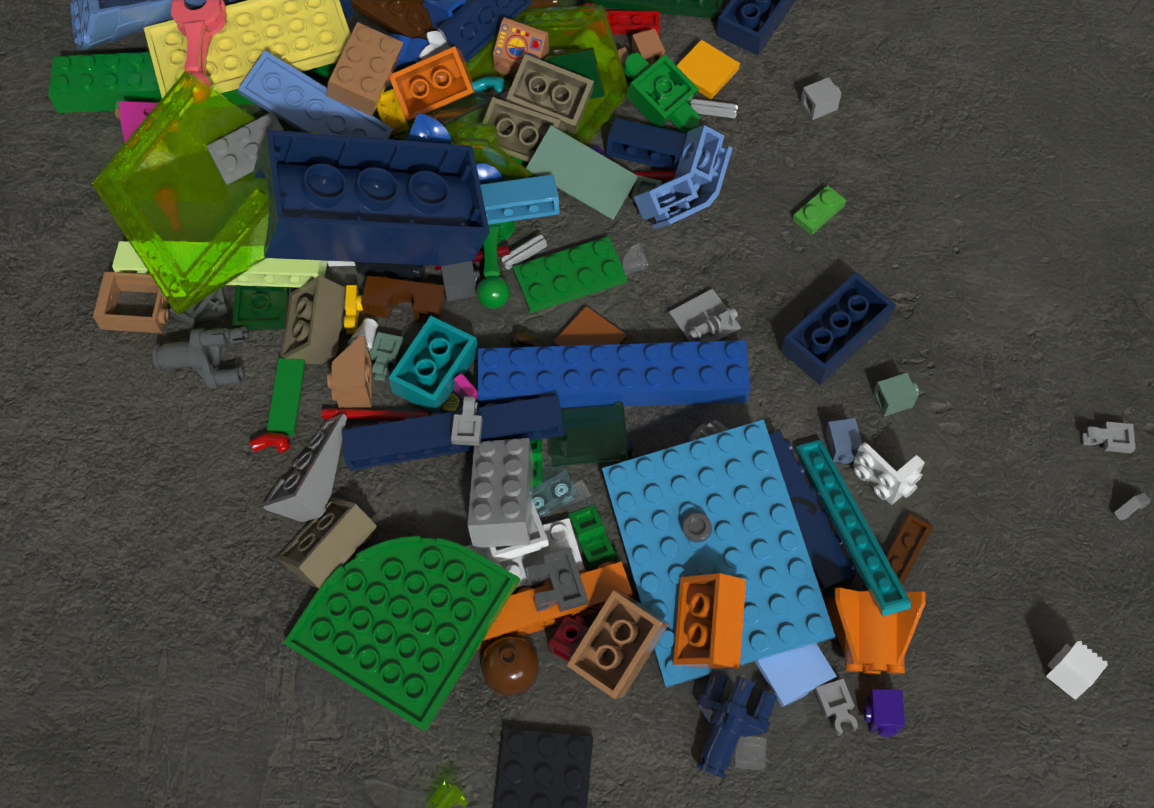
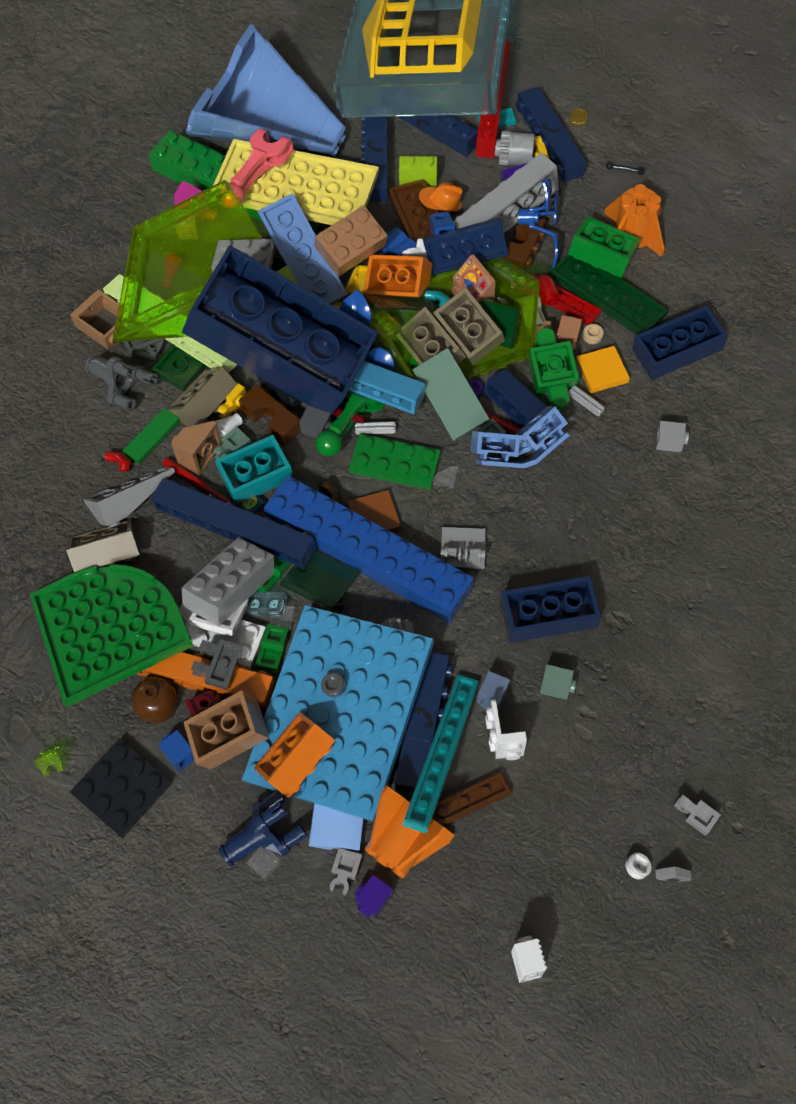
camera: 35 degrees right, 0 degrees up
(464, 388) = (260, 499): dark pink tile -> none
(468, 426) = (238, 522): light grey plate -> none
(576, 700) = (176, 750): none -> blue brick
(670, 39) = (593, 334): none -> tan tile
(819, 210) = (607, 517): bright green plate -> none
(1097, 518) = (638, 866): none -> white tile

